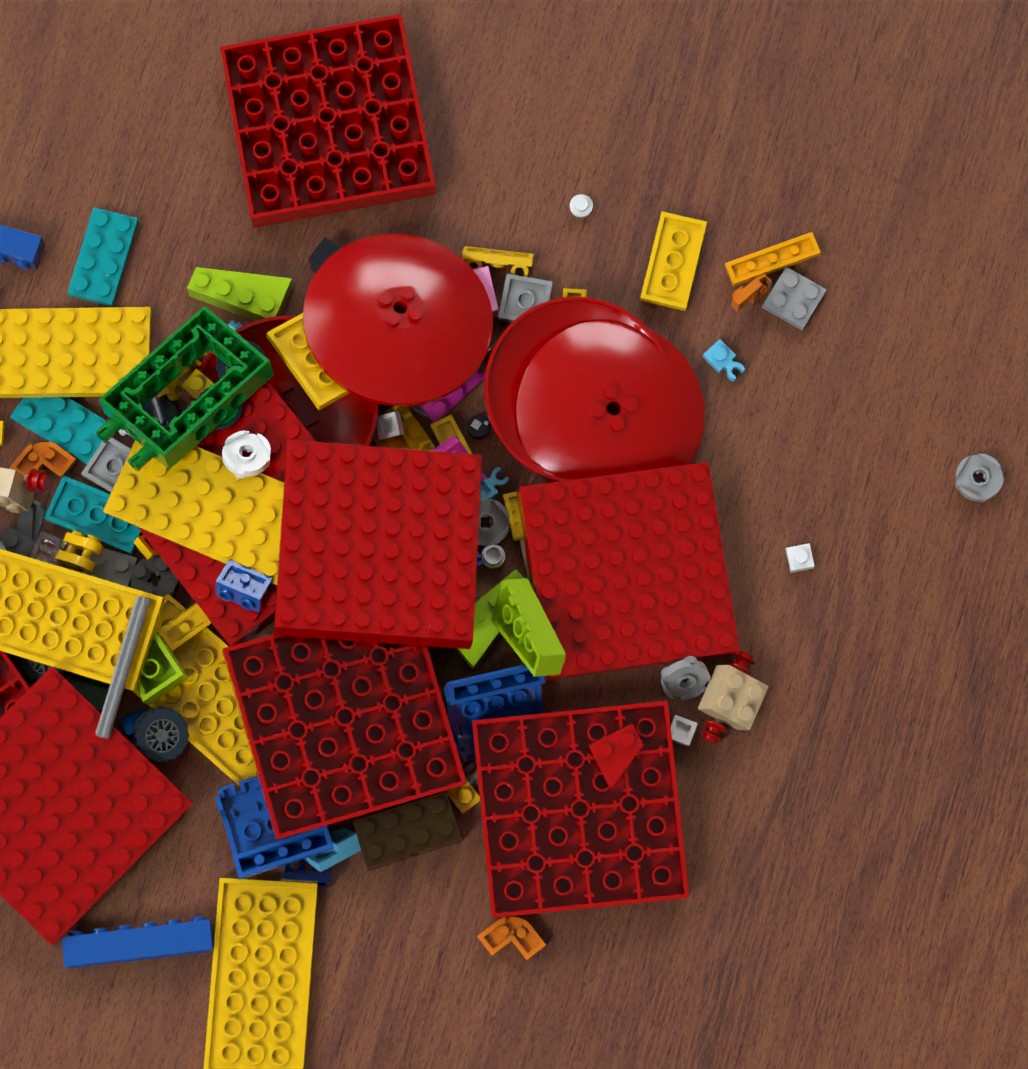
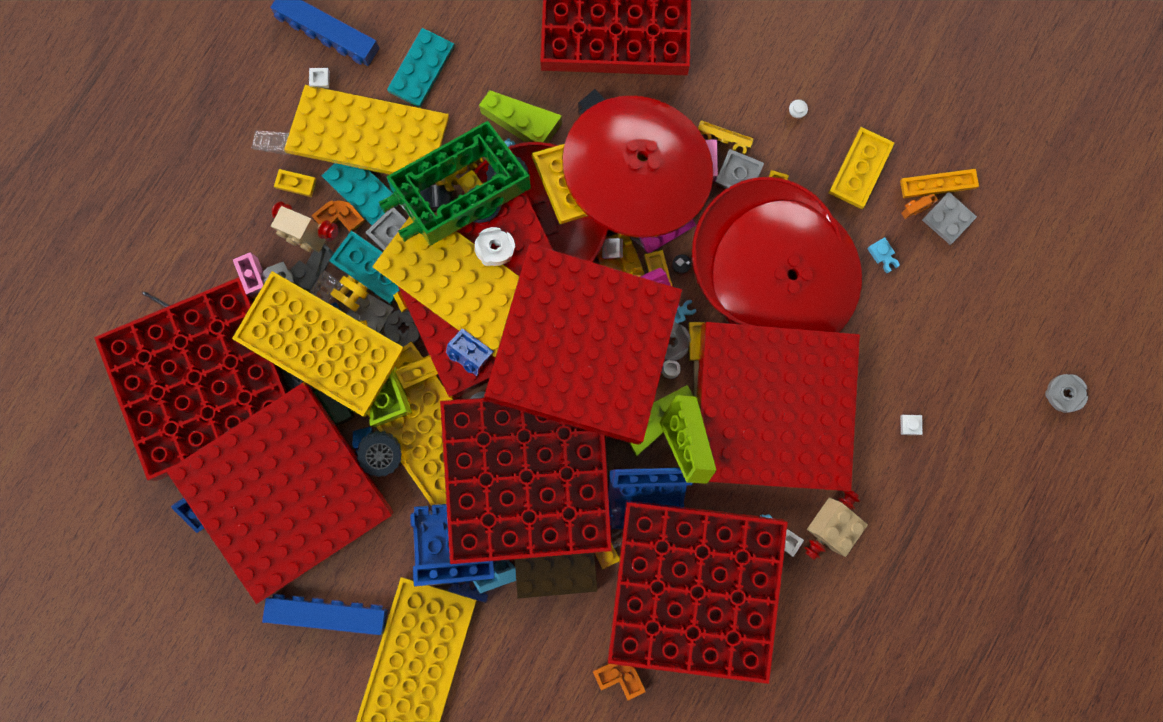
camera: 10 degrees right, 5 degrees up
(122, 667) = (358, 396): light grey axle -> none
(616, 752) = (737, 555): red wing -> none
(689, 668) = (802, 502): light grey plate -> none

